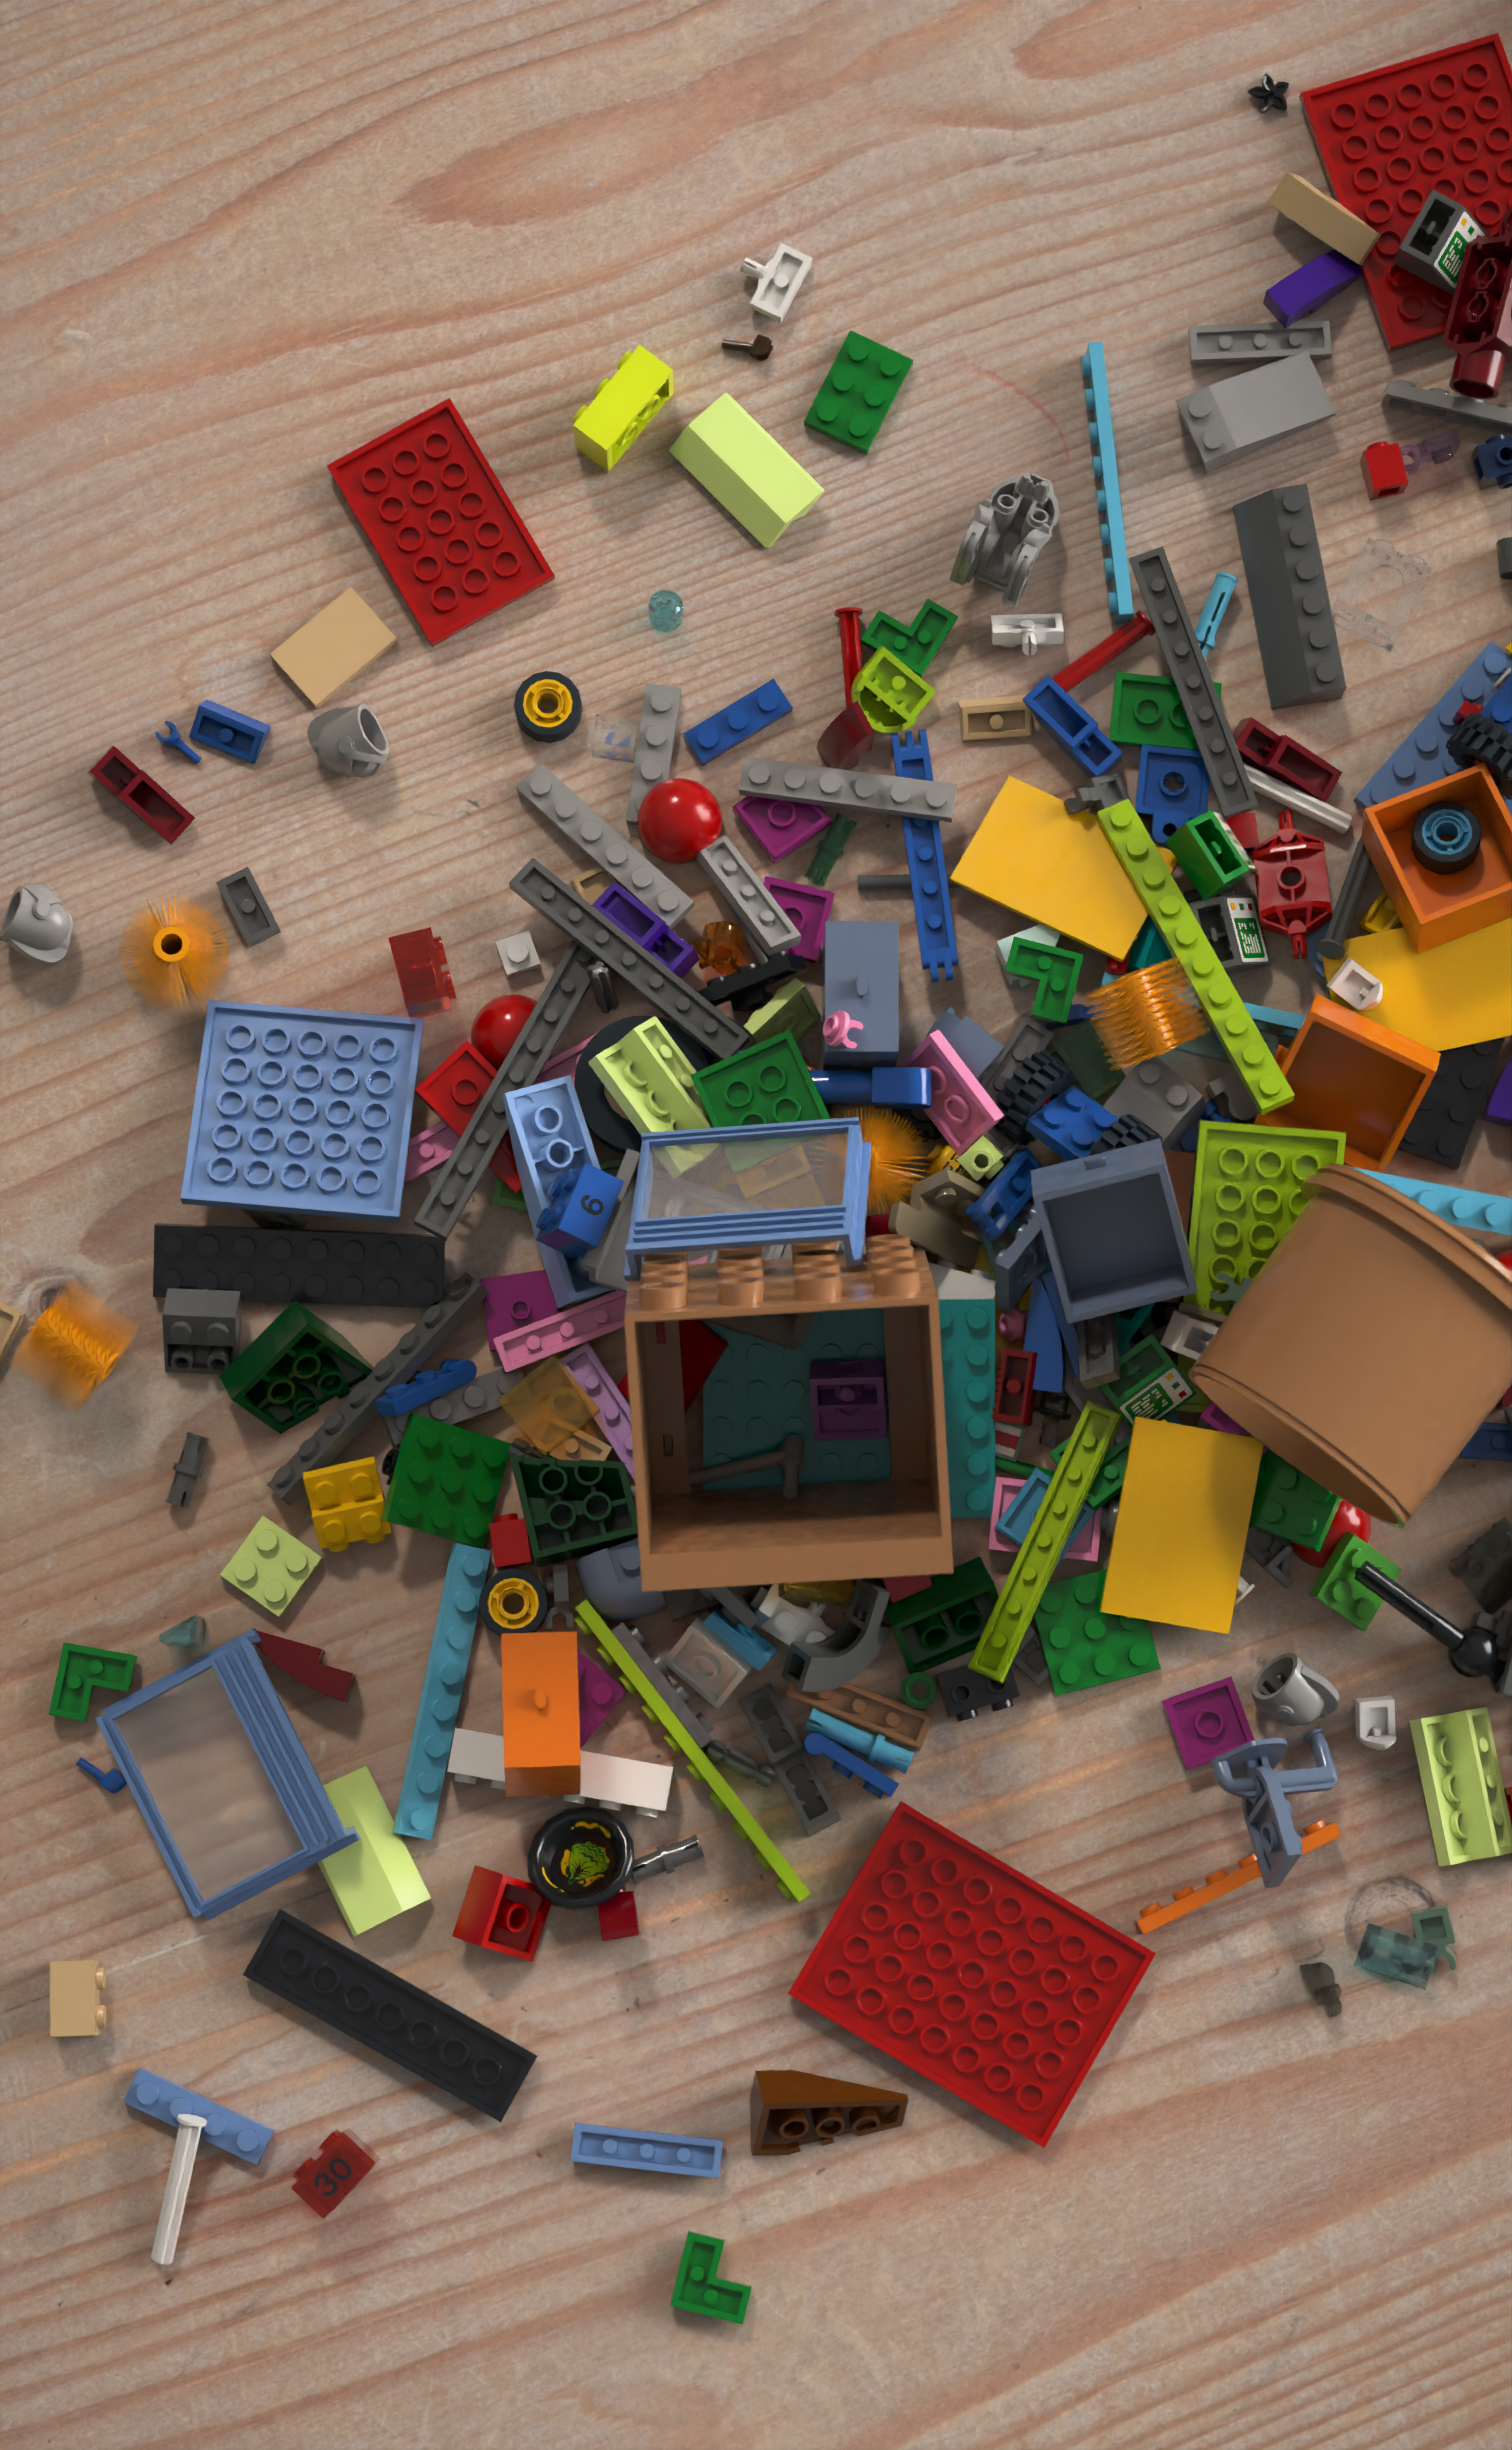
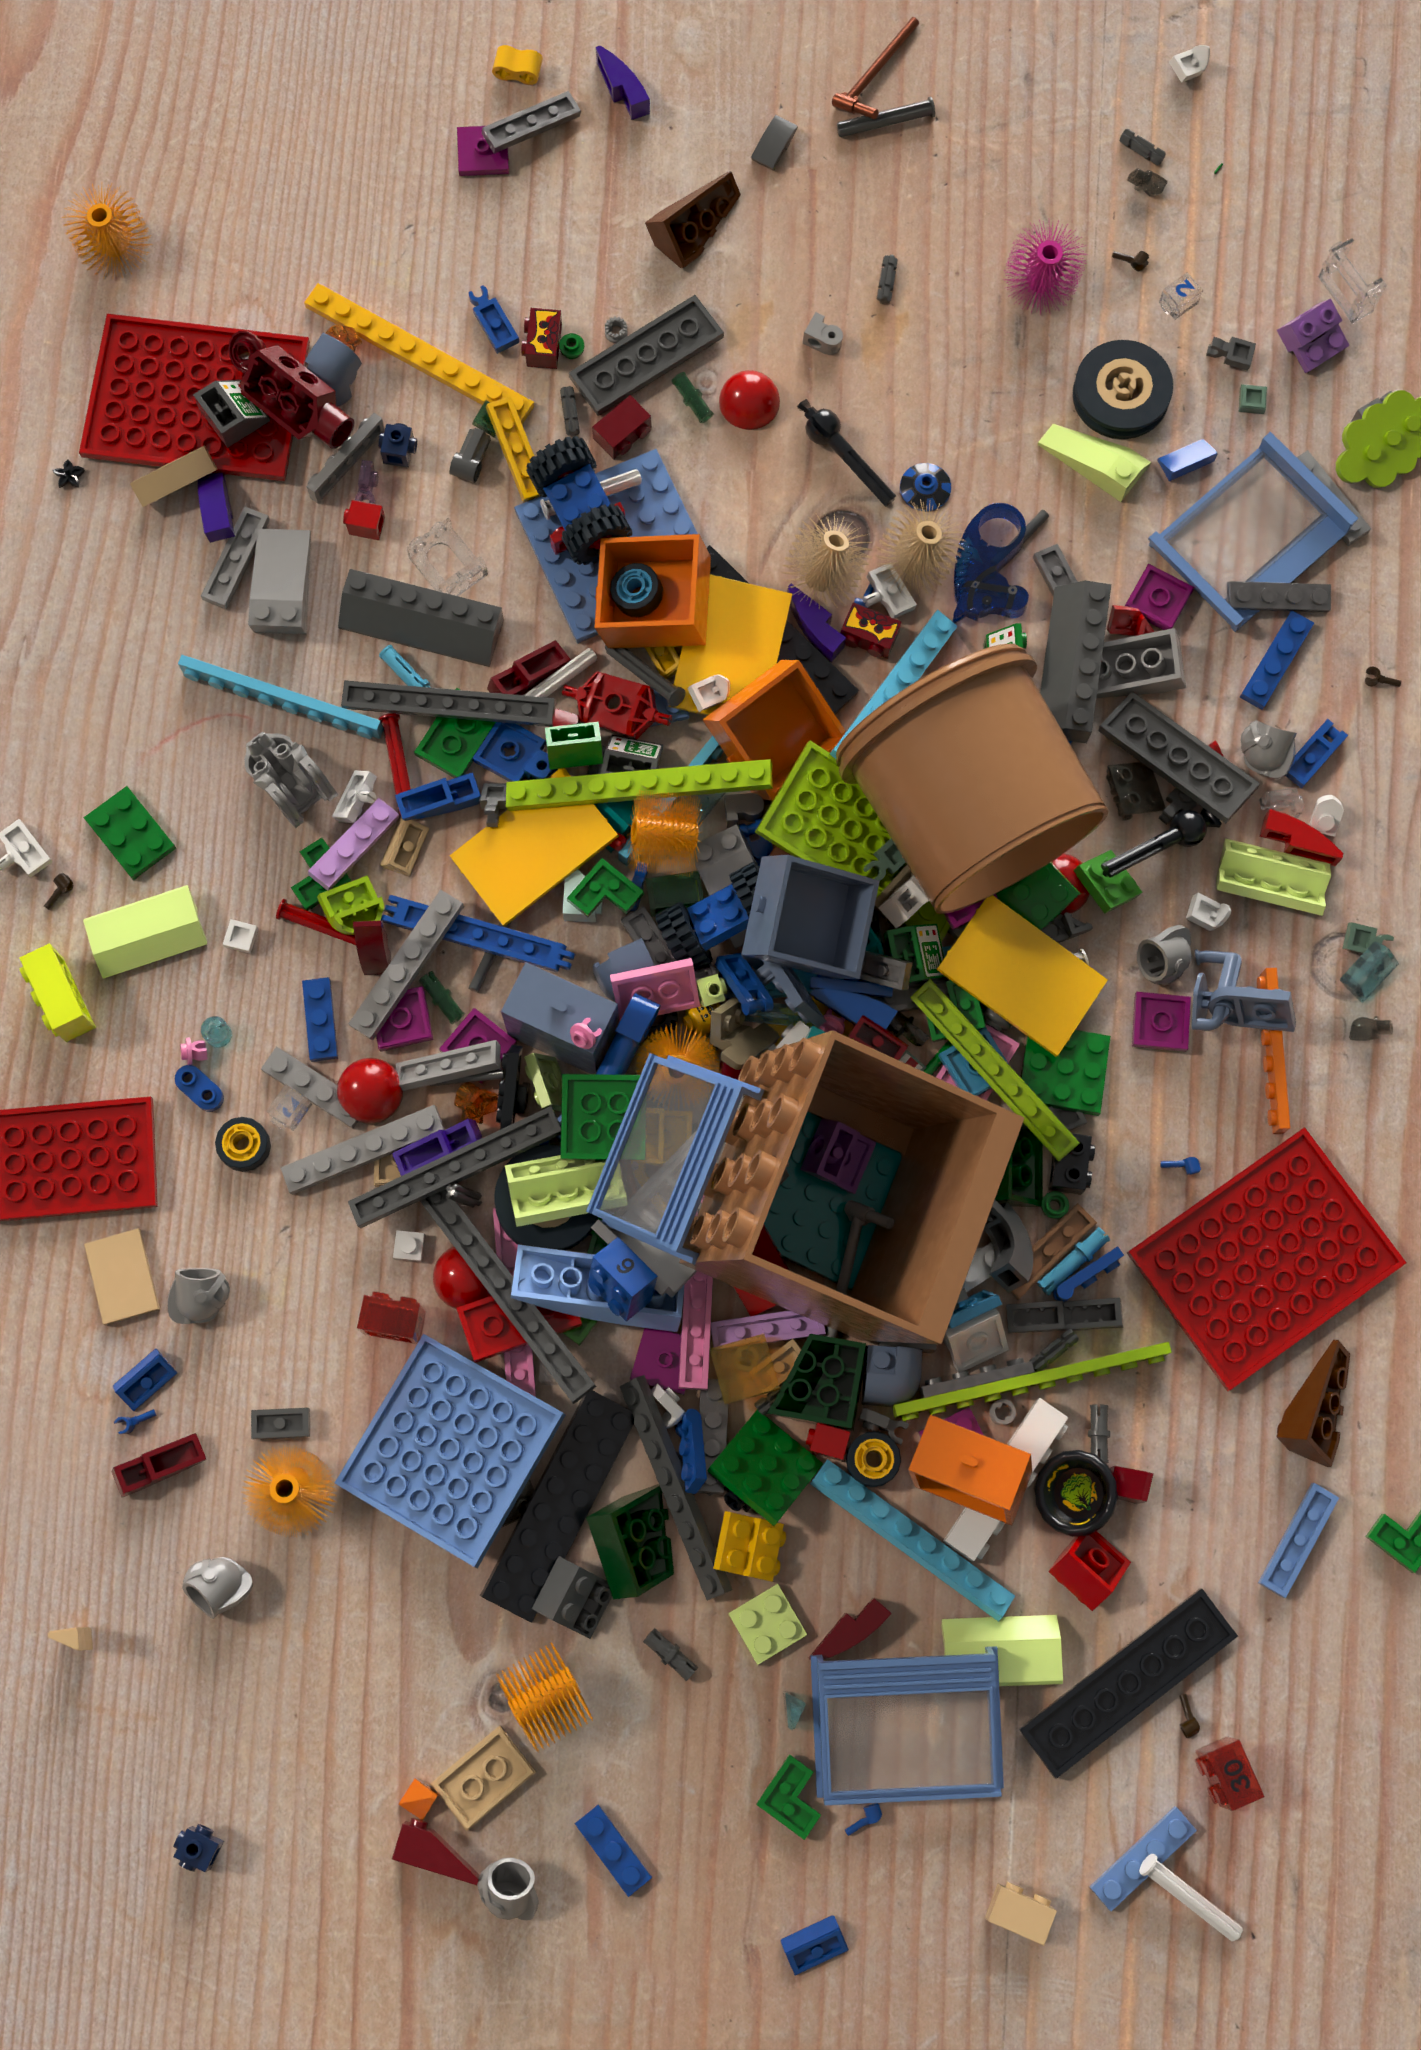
camera: 65 degrees left, 5 degrees down
(372, 2110) = (1191, 1726): none -> dark brown hand
(472, 1337) = (668, 1400): none -> white plate
(591, 623) = (198, 1087): none -> blue plate
(631, 597) = (195, 1050): none -> bright pink plate
(646, 1724) = (996, 1405): none -> light grey bush
(793, 581) = (240, 936): none -> white plate
(966, 657) = (353, 844): none -> lavender plate
(1045, 1835) = (1191, 1165): none -> blue hand

